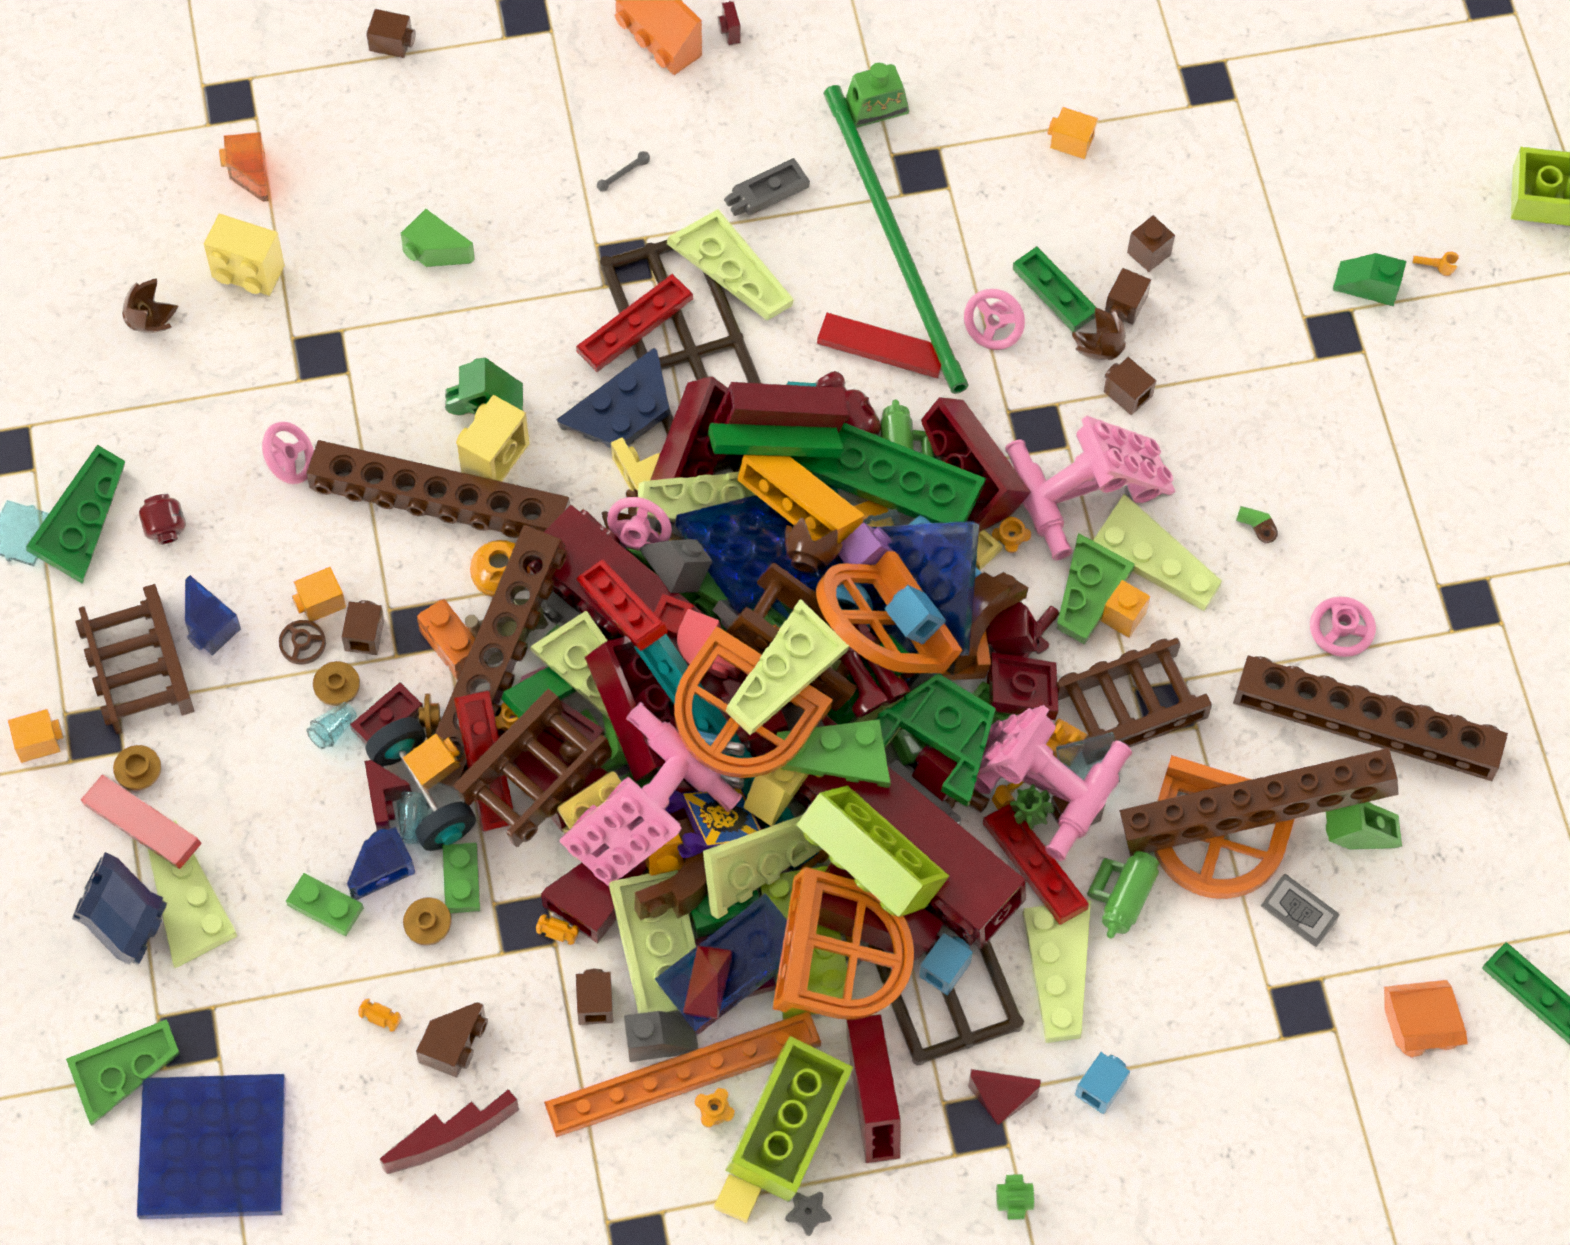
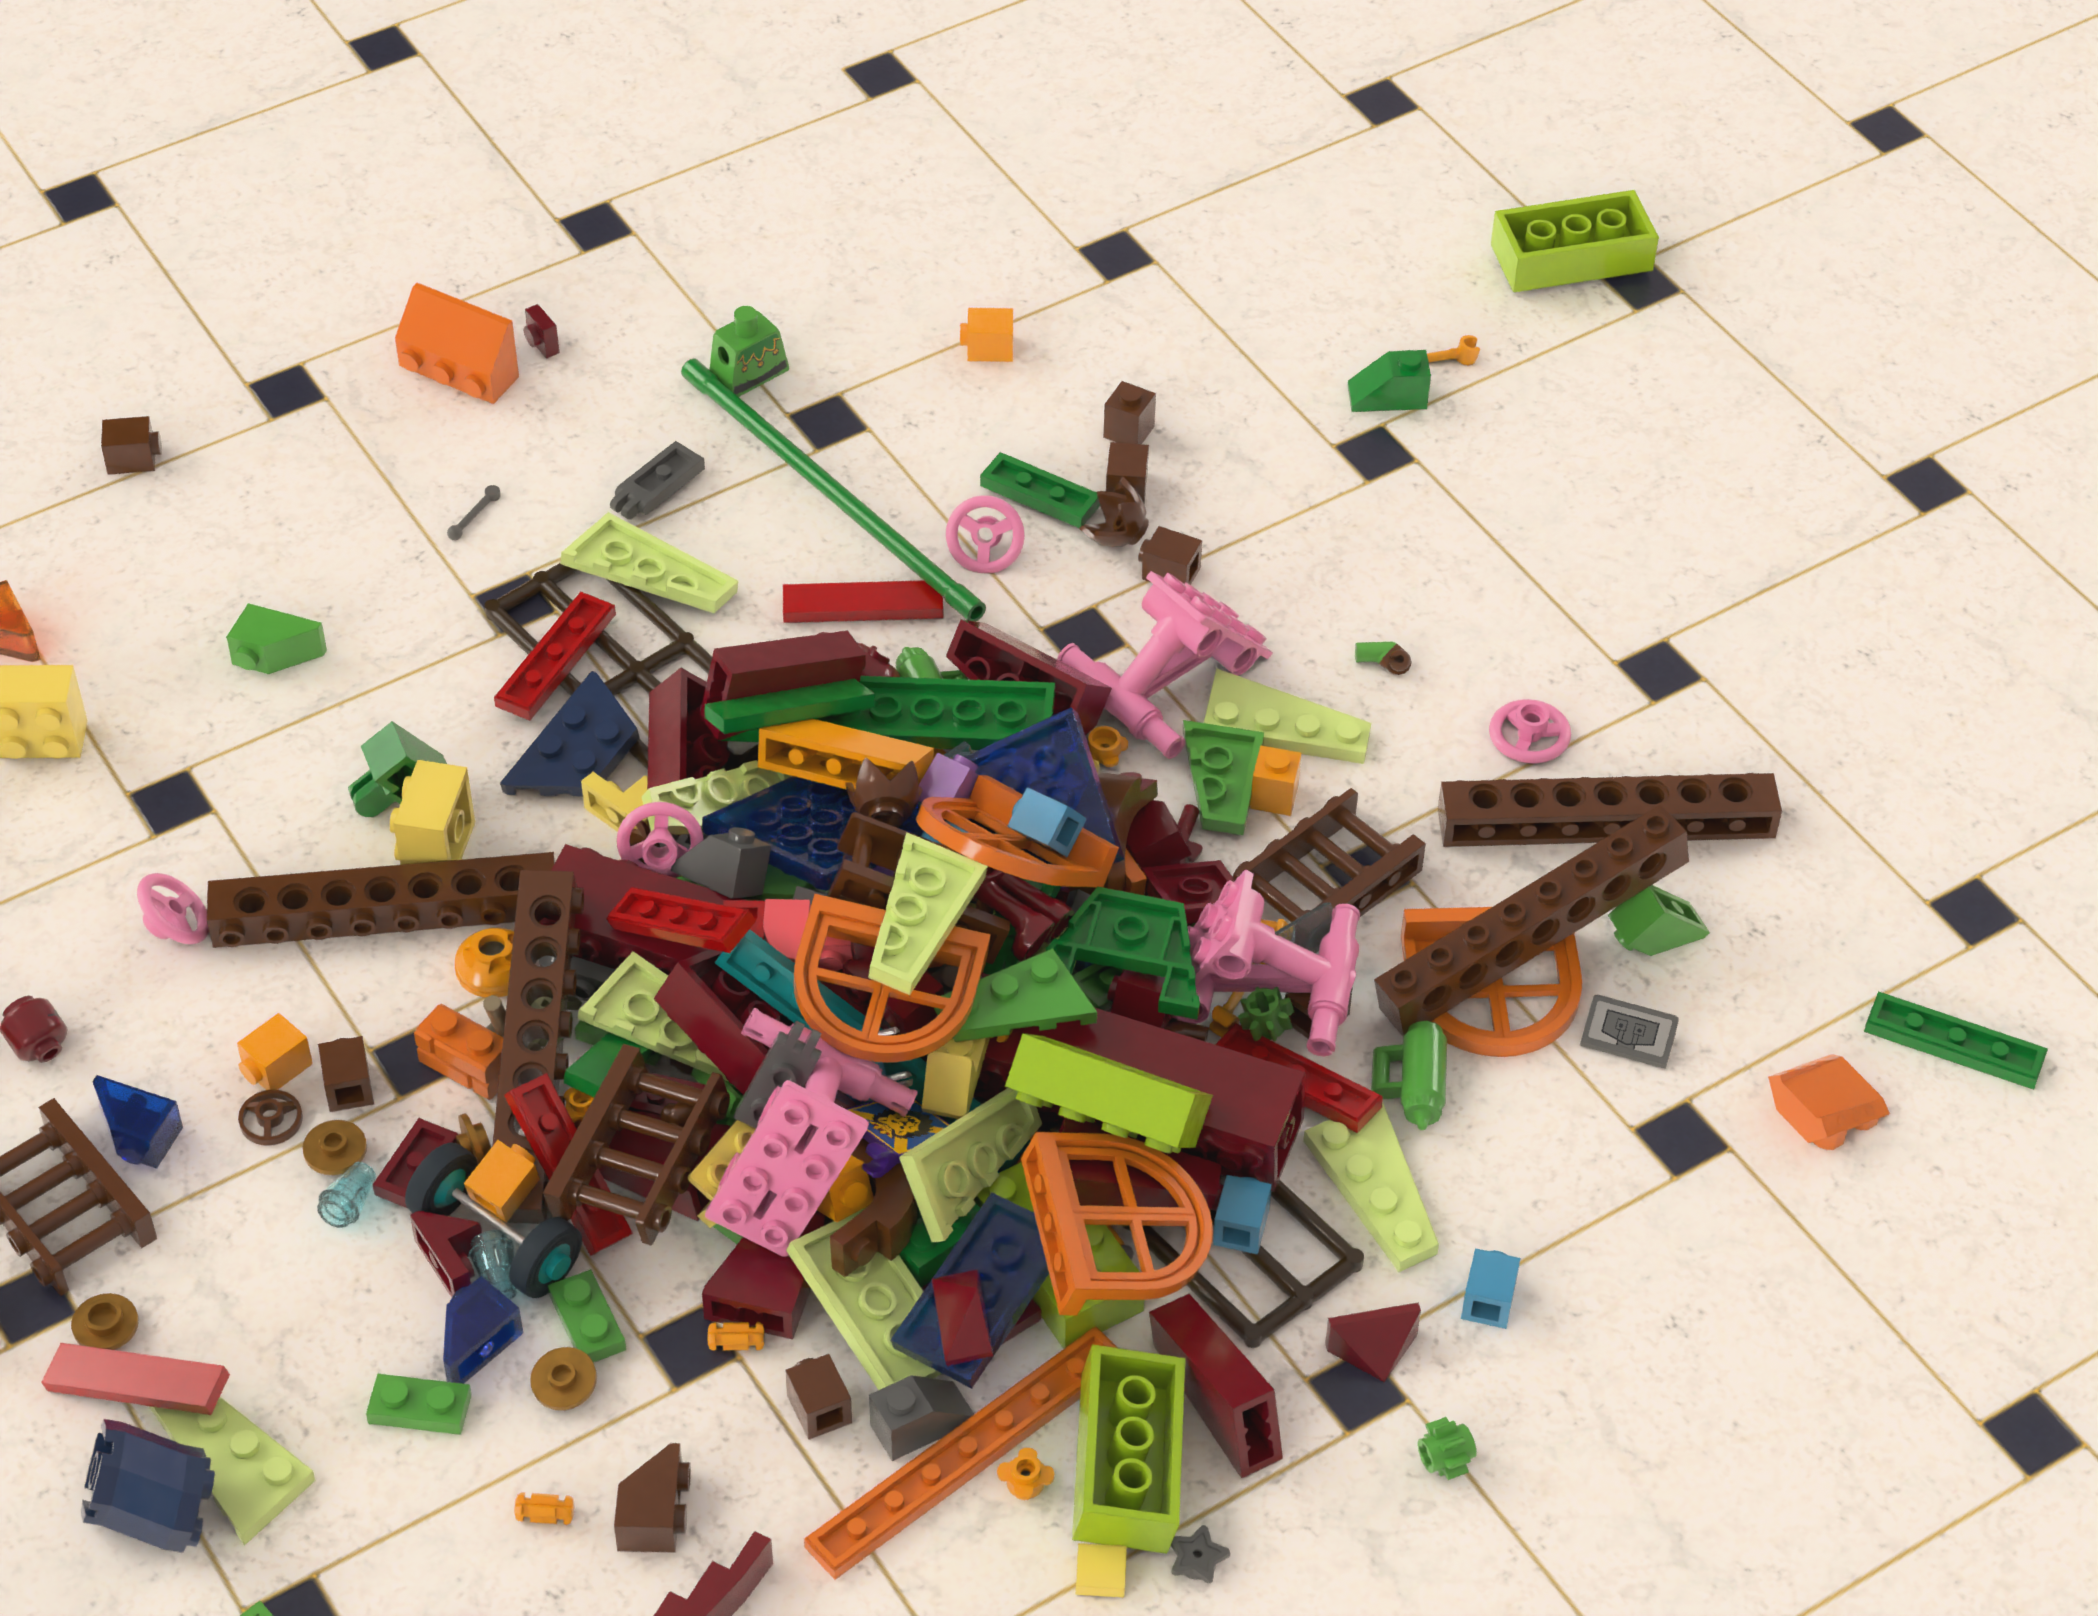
camera: 20 degrees left, 15 degrees down
(642, 759) = (784, 1061): none -> dark grey hinge

